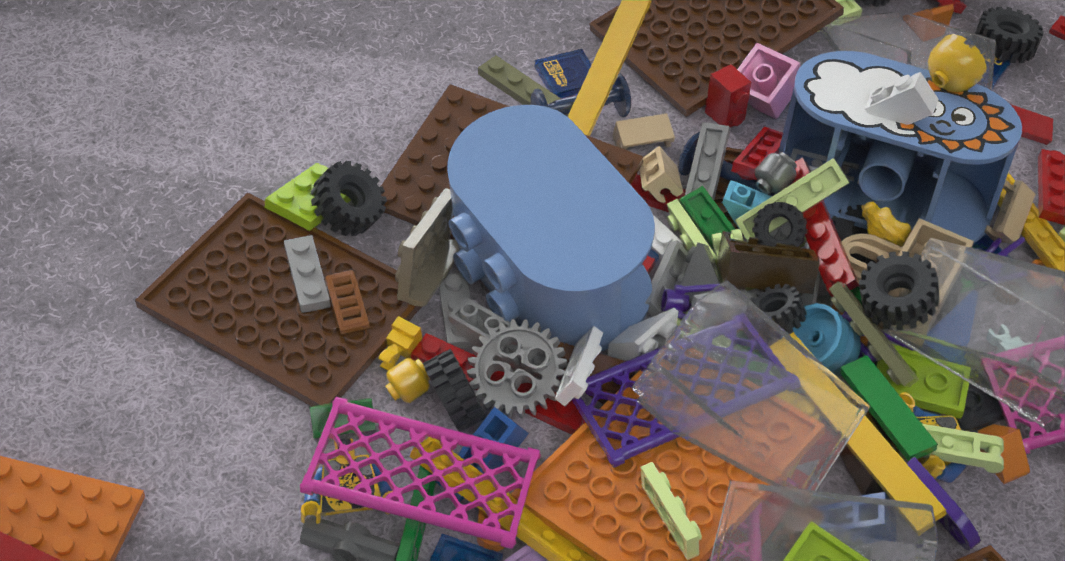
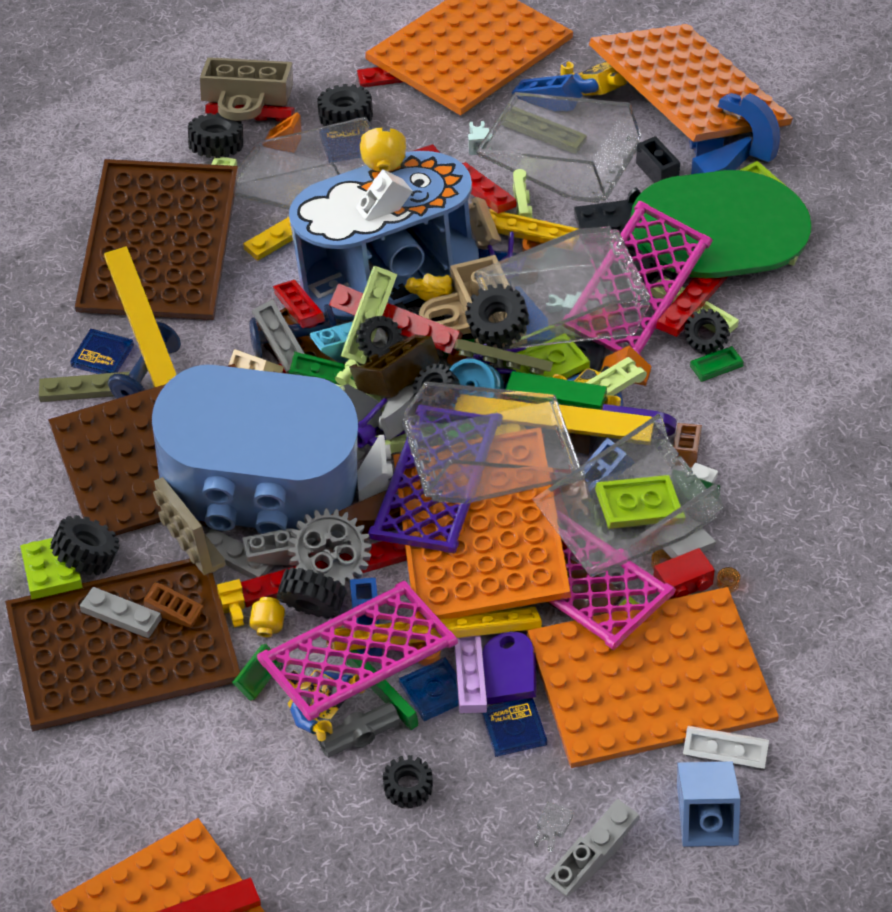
camera: 45 degrees left, 0 degrees up
(579, 367) = (369, 513): white plate -> none
(643, 131) = (207, 348): tan hinge -> none
(671, 510) = (520, 543): yellowish green plate -> none
(728, 96) = (234, 284): red brick -> none
(771, 79) = (243, 253): bright pink slope -> none
(775, 173) = (336, 306): dark grey head -> none

